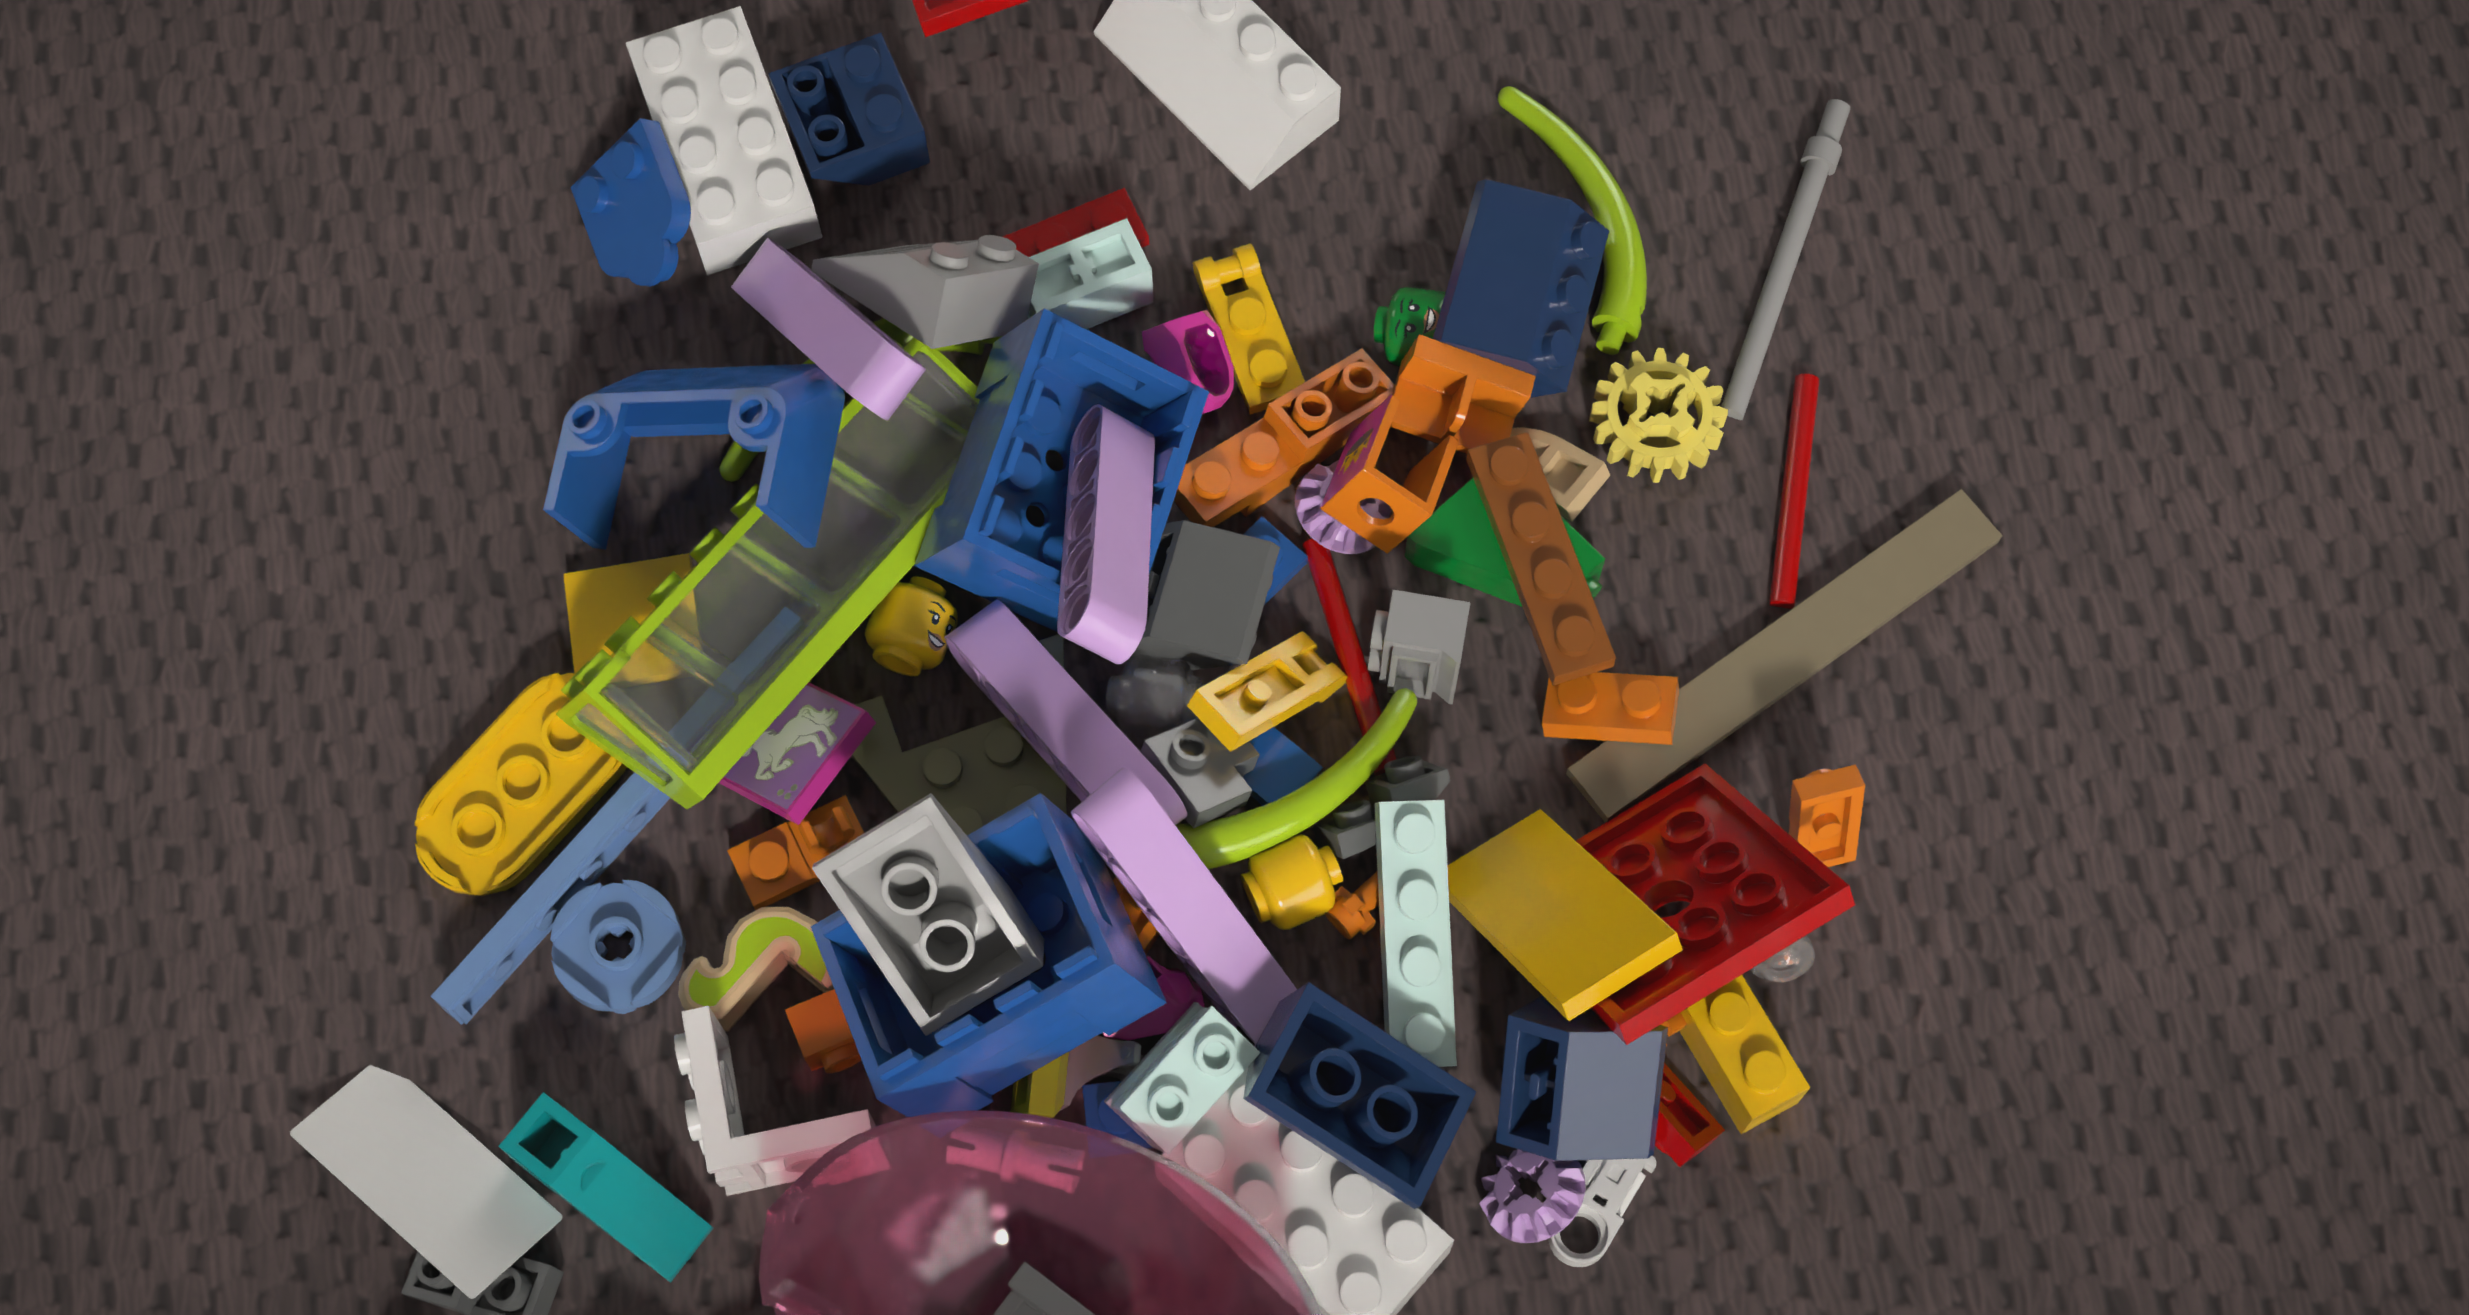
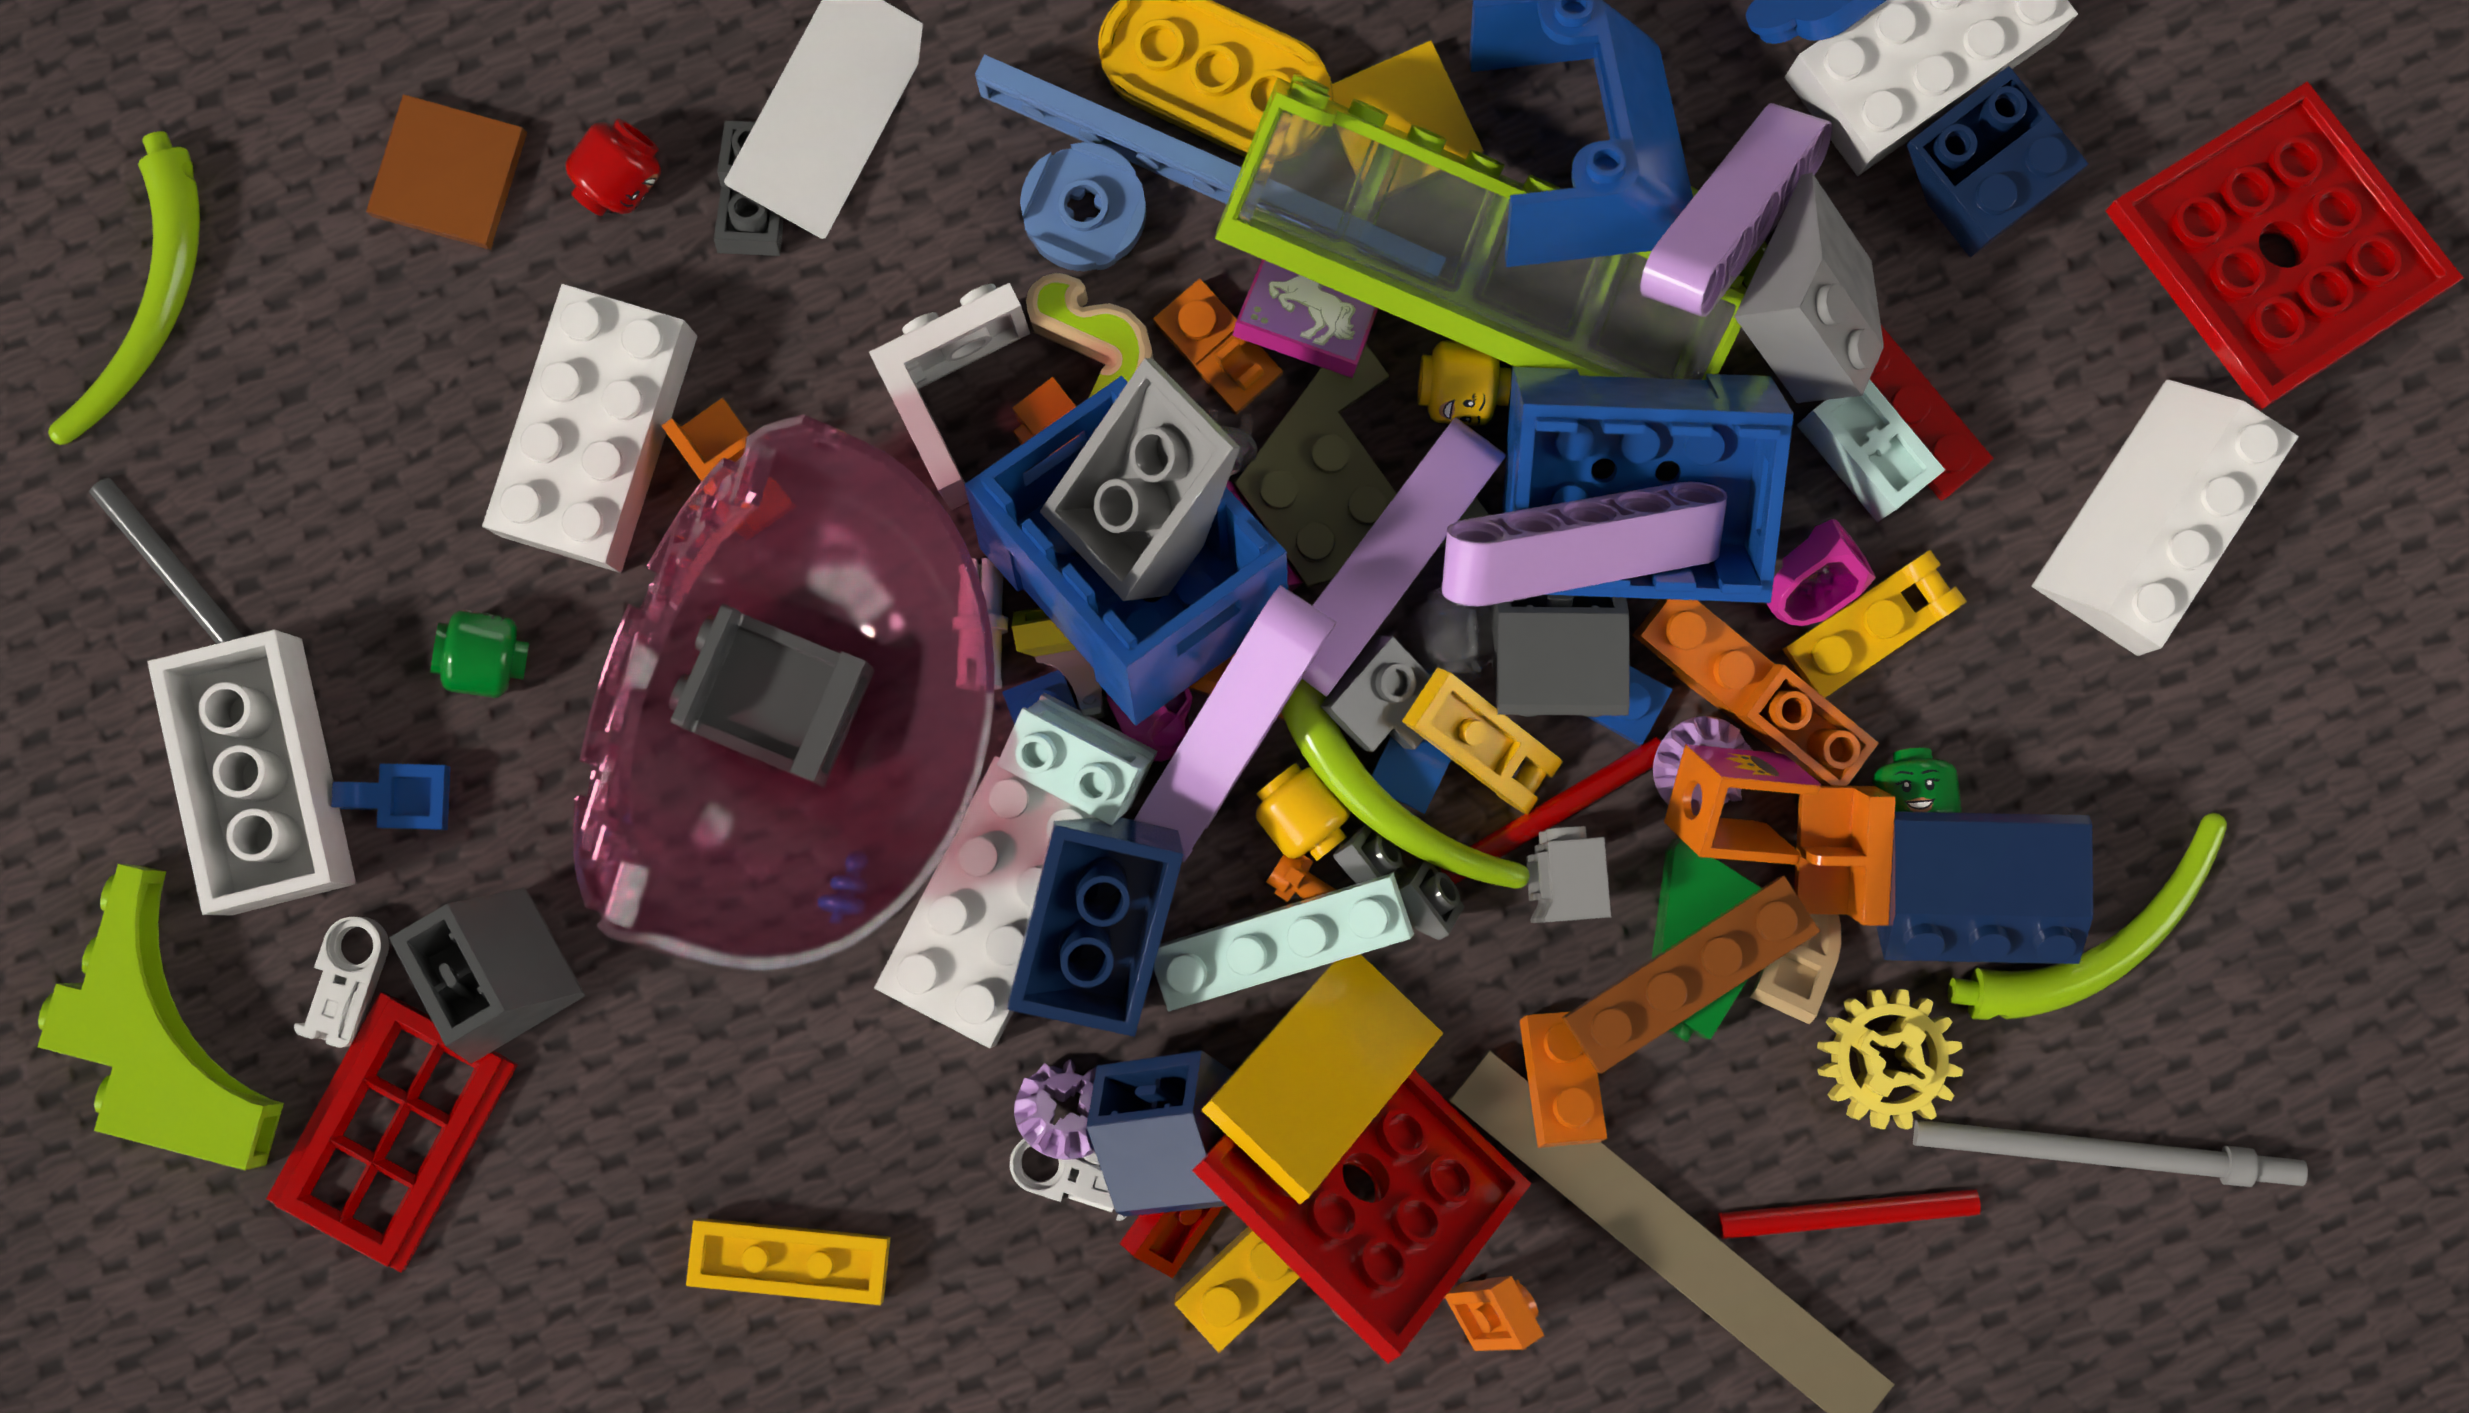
camera: 75 degrees right, 15 degrees up
(605, 1187) = (856, 265): teal slope -> none

